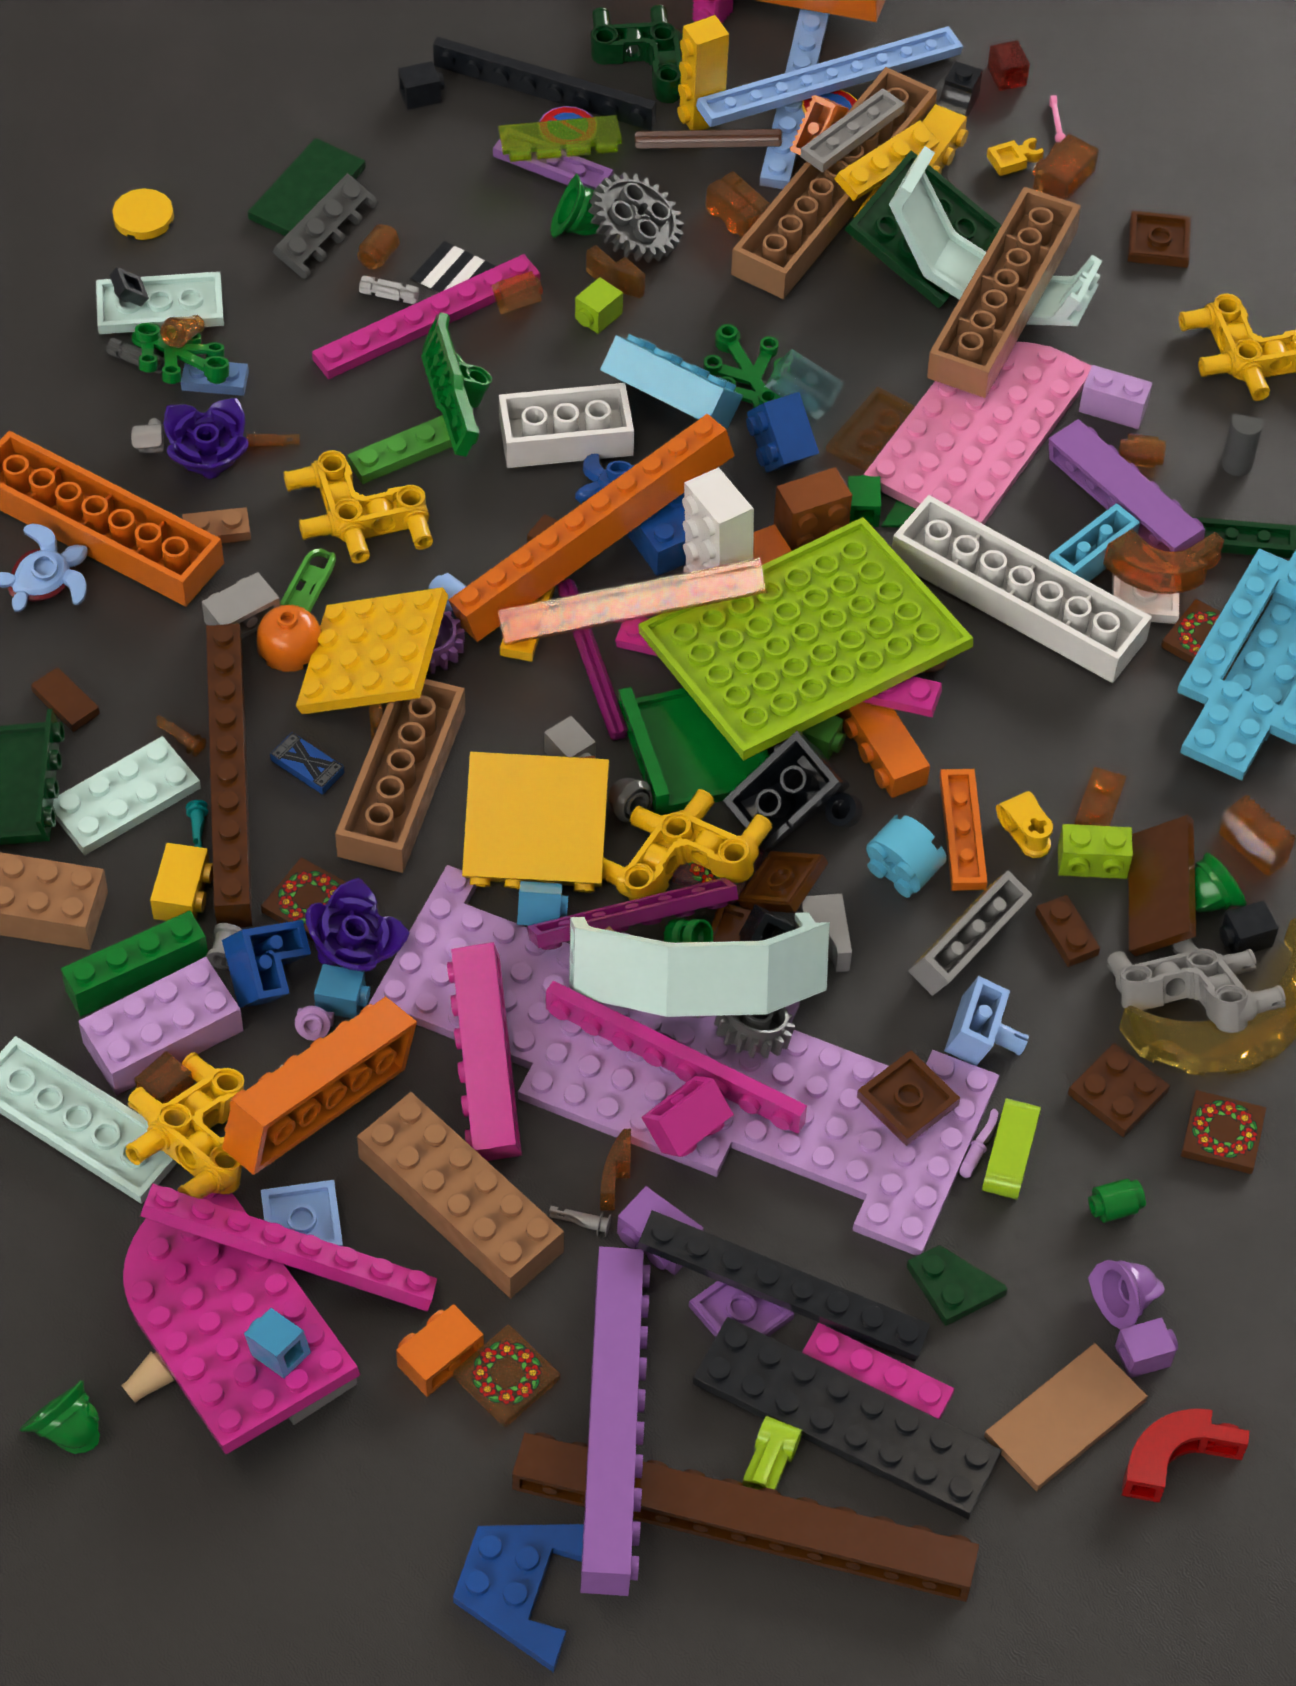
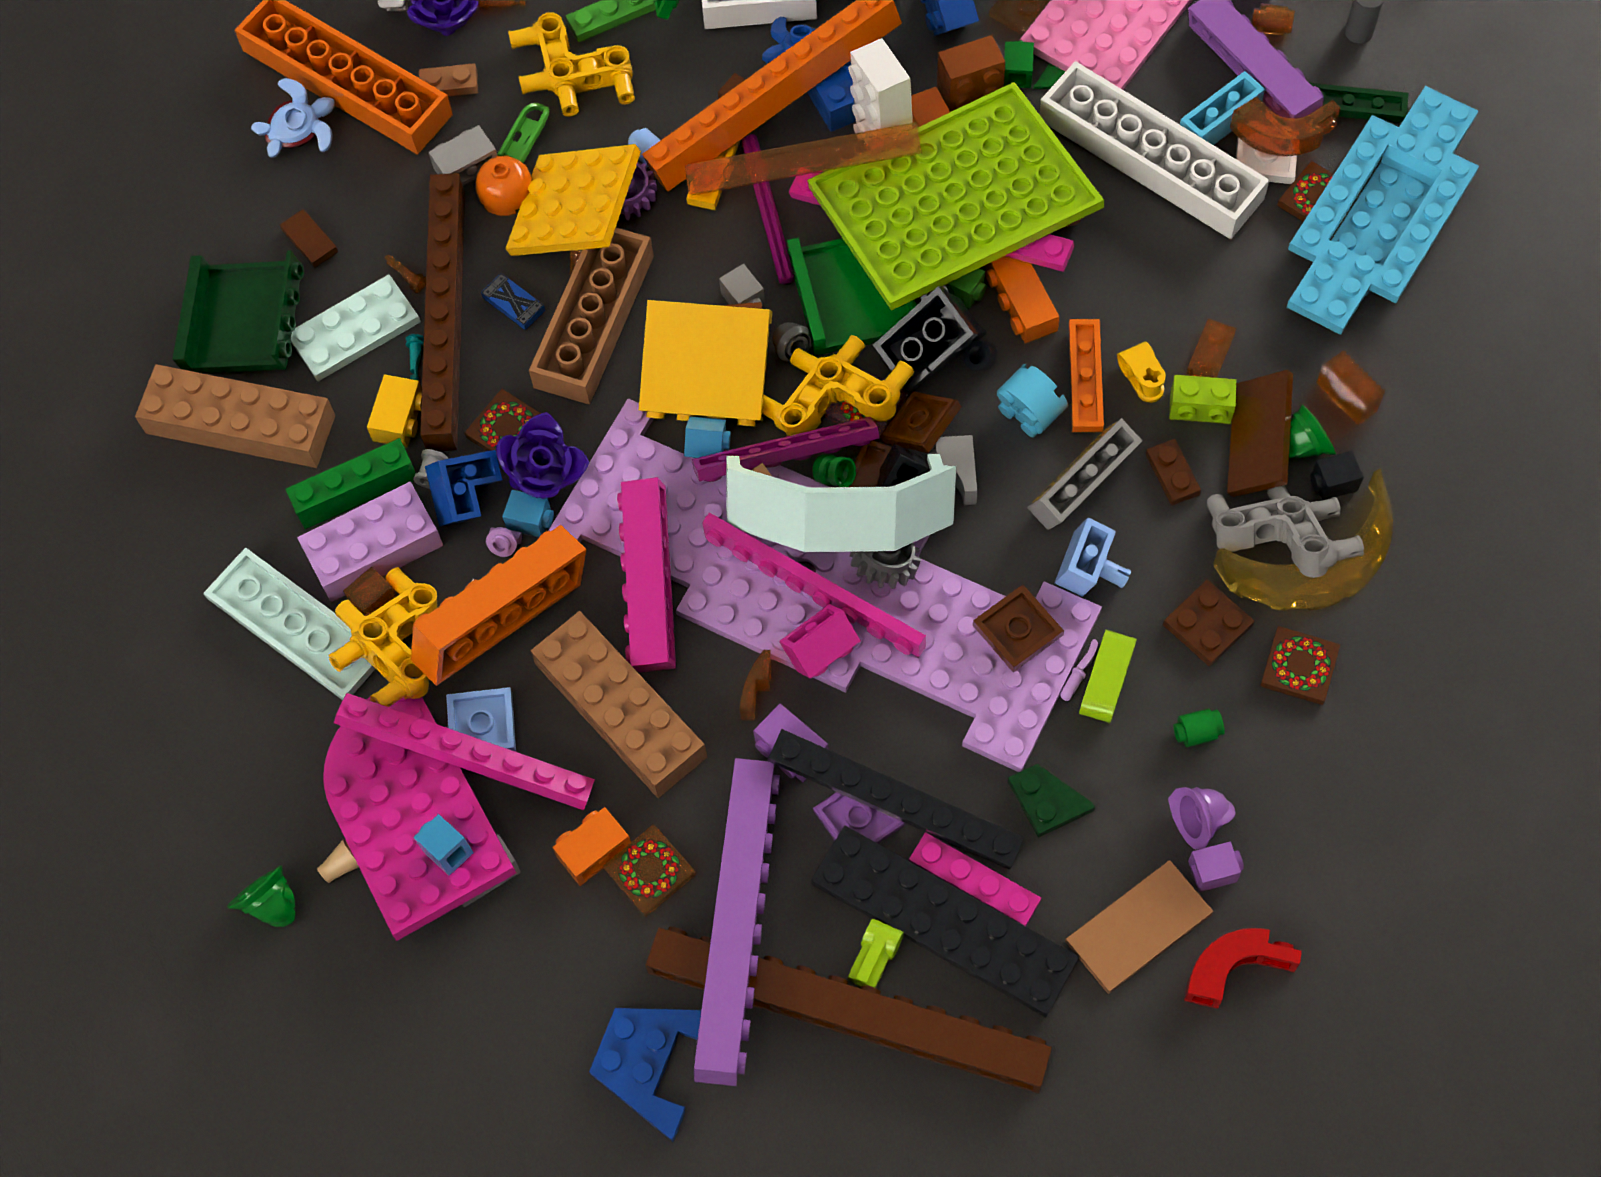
camera: 10 degrees right, 10 degrees up
(582, 1219) = (726, 729): light grey piece -> none

